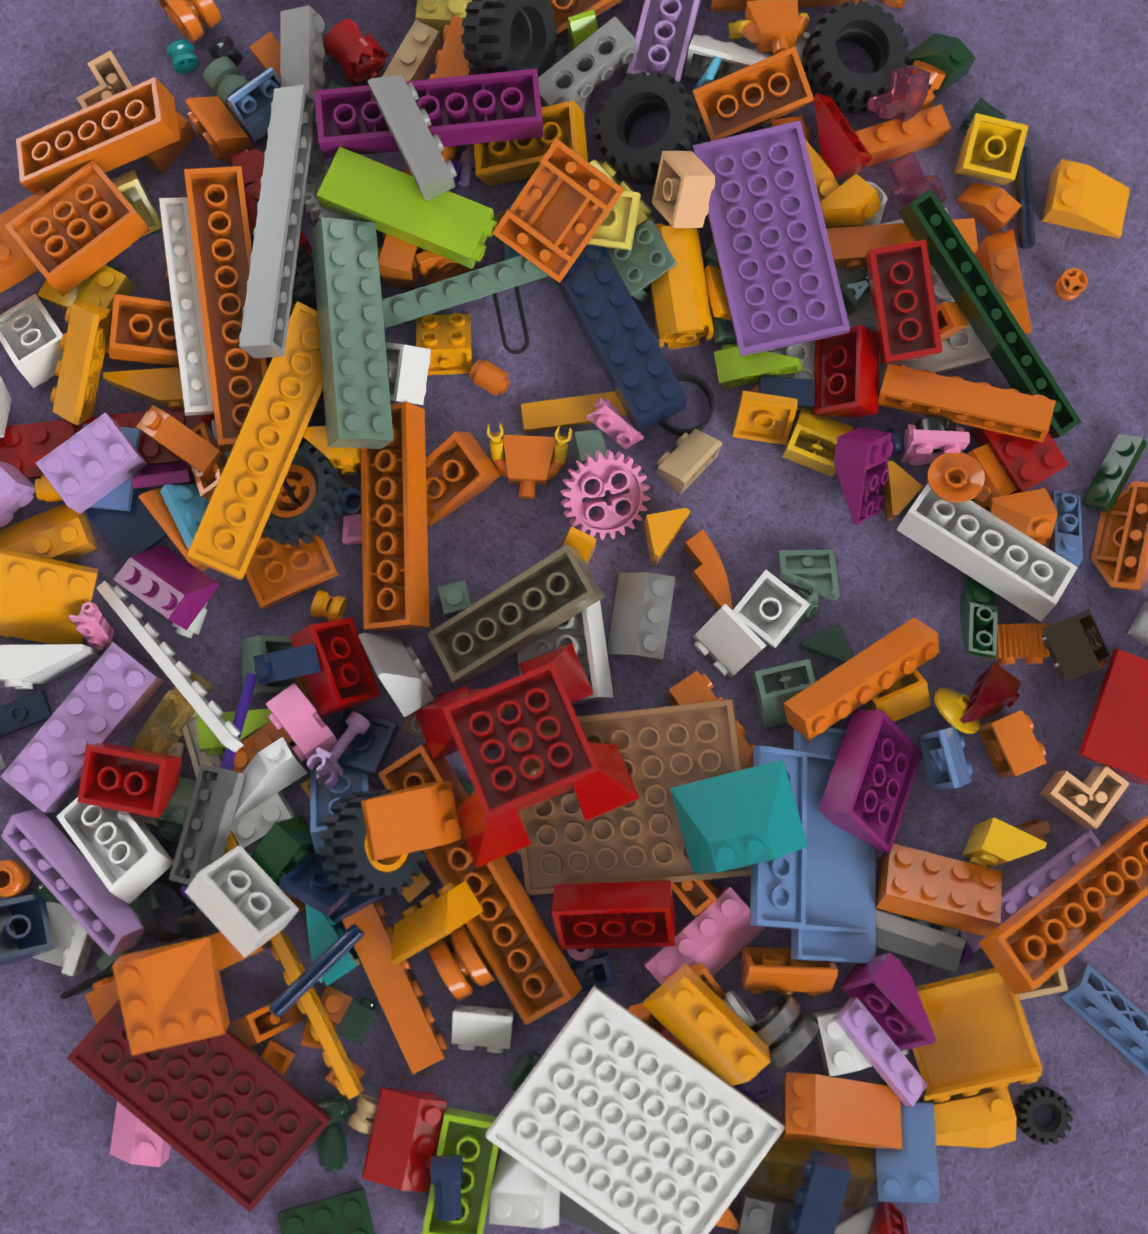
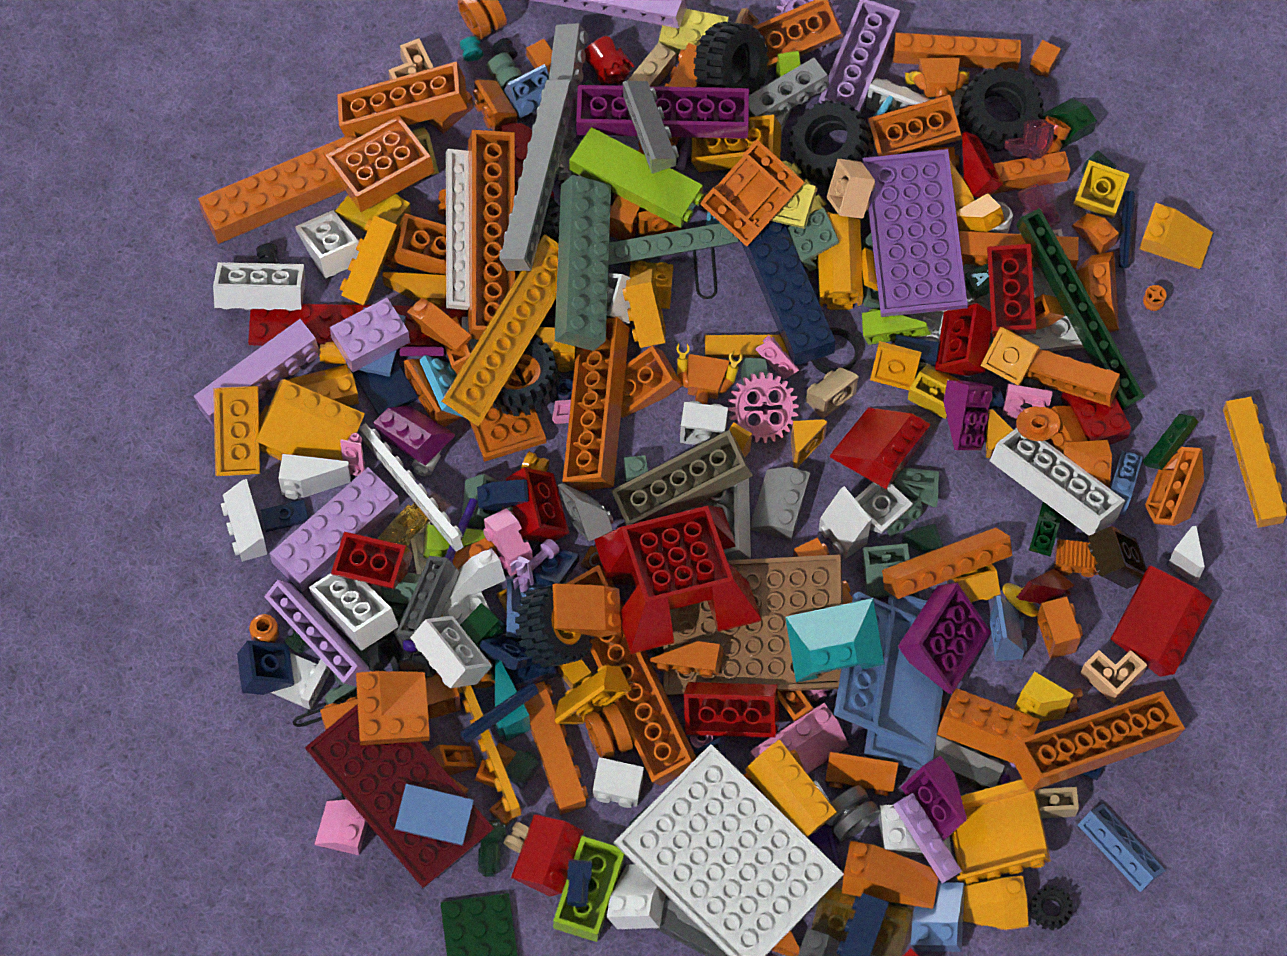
camera: 10 degrees right, 15 degrees down
(249, 1120) = (434, 814): none -> medium blue tile
(441, 384) = (645, 309): none -> light orange slope
(490, 377) = (683, 312): orange brick -> none
(533, 527) = (702, 422): none -> white brick
(564, 852) = (695, 657): none -> orange slope
(710, 571) = (837, 474): orange slope -> none
(759, 527) = (881, 444): none -> red slope
(912, 392) = (1010, 356): none -> light orange tile

